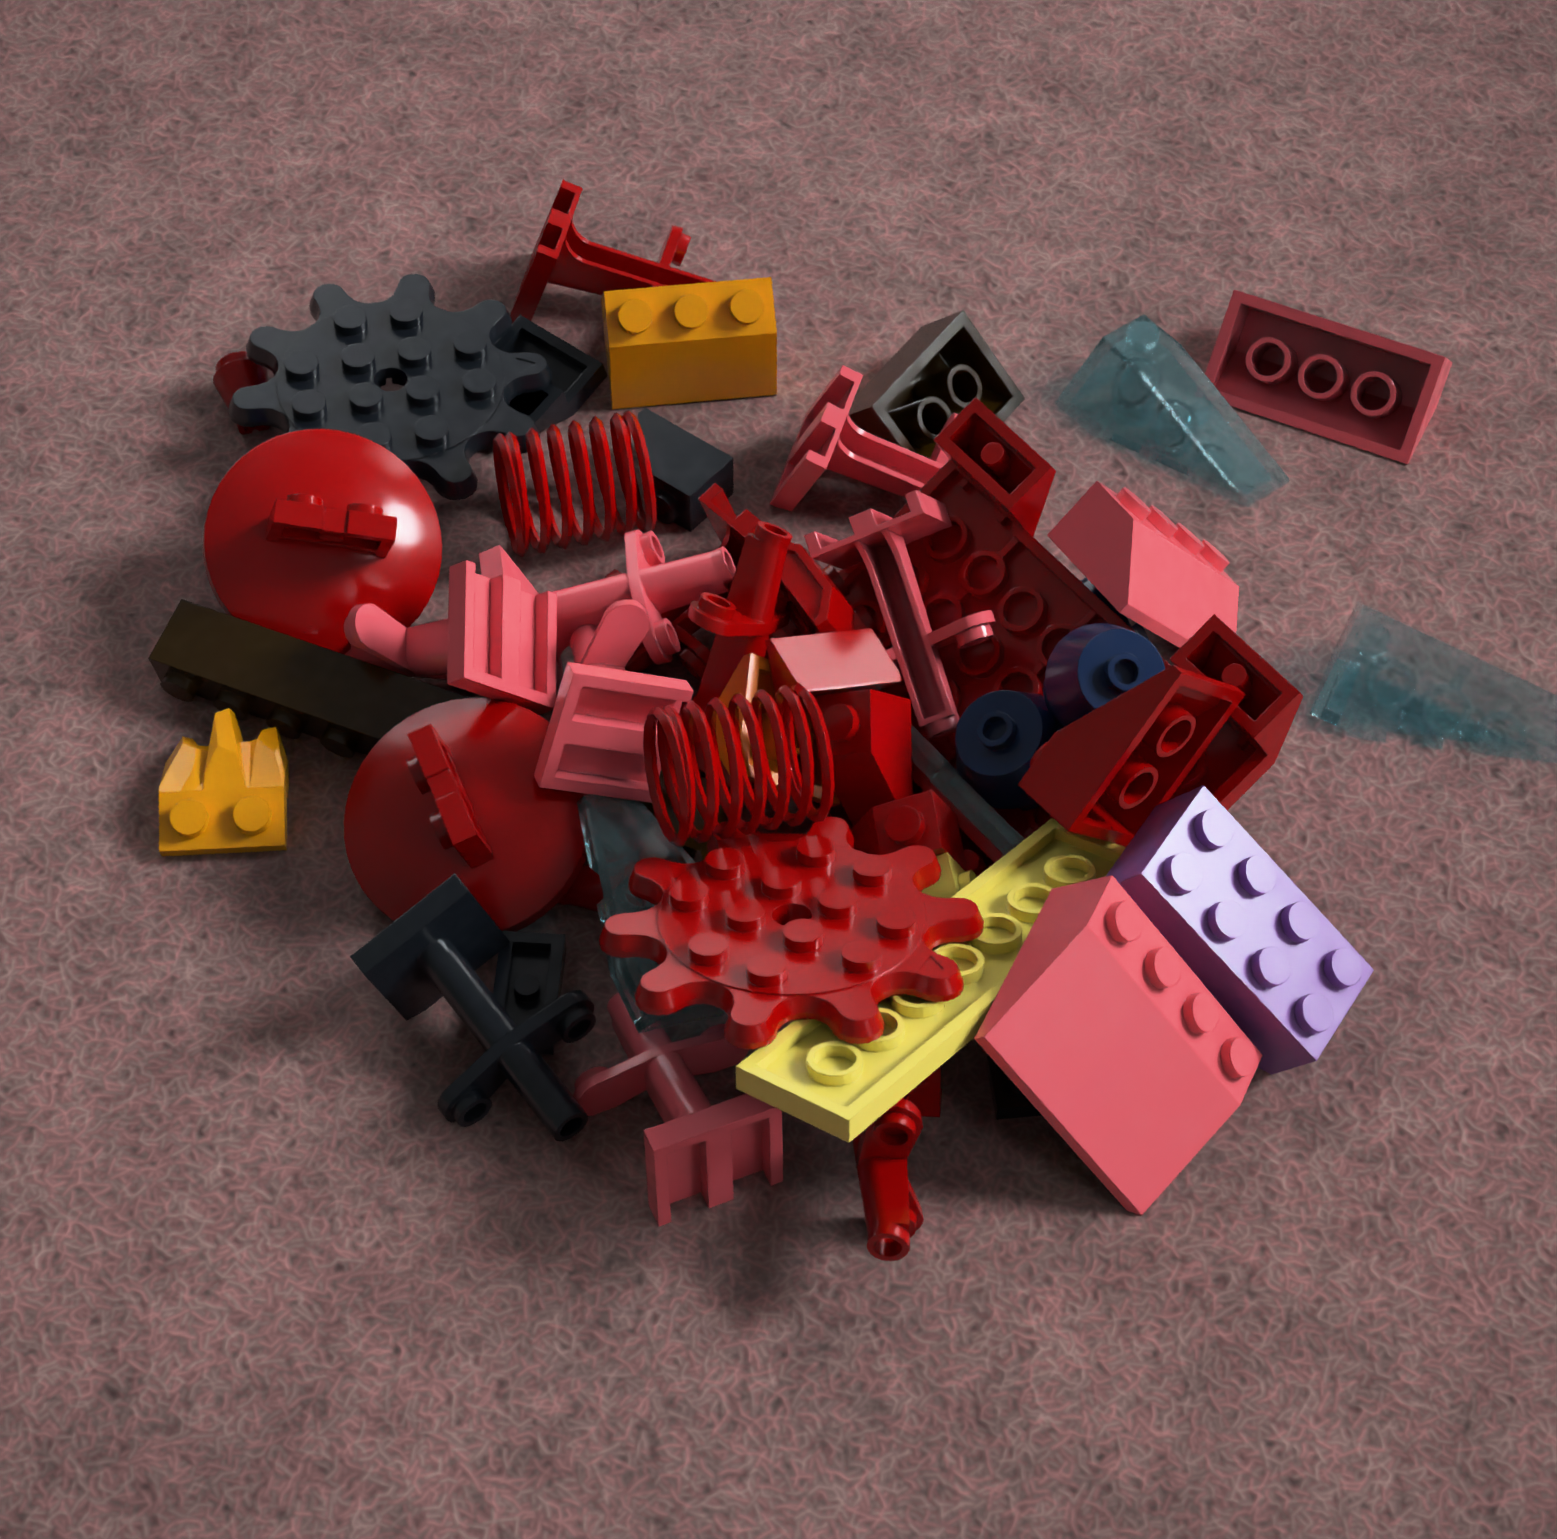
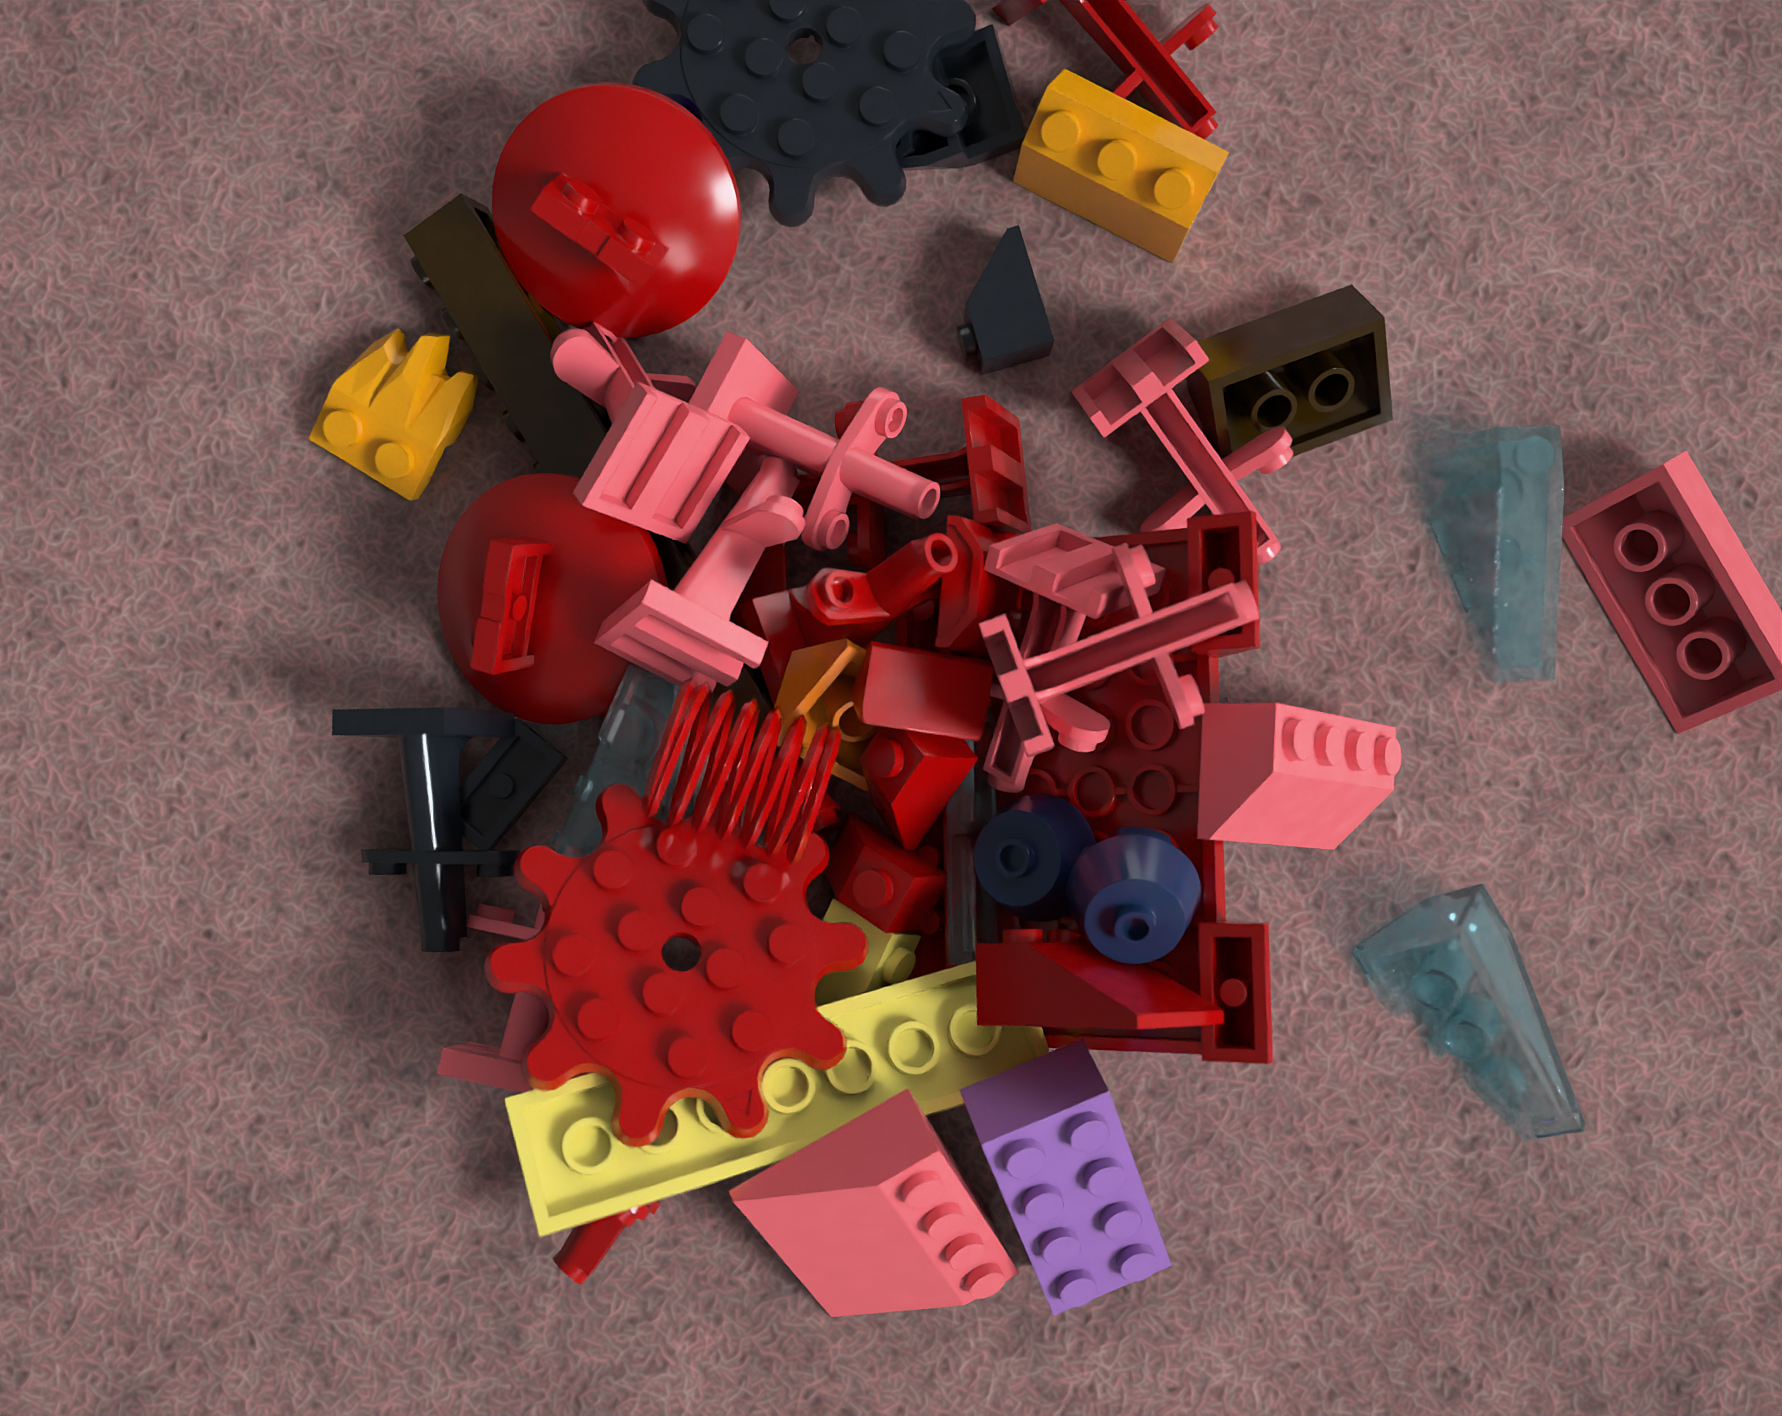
camera: 35 degrees right, 35 degrees up
(510, 470) = (826, 254): red piece -> none
(911, 590) = (1115, 650): none -> coral piece

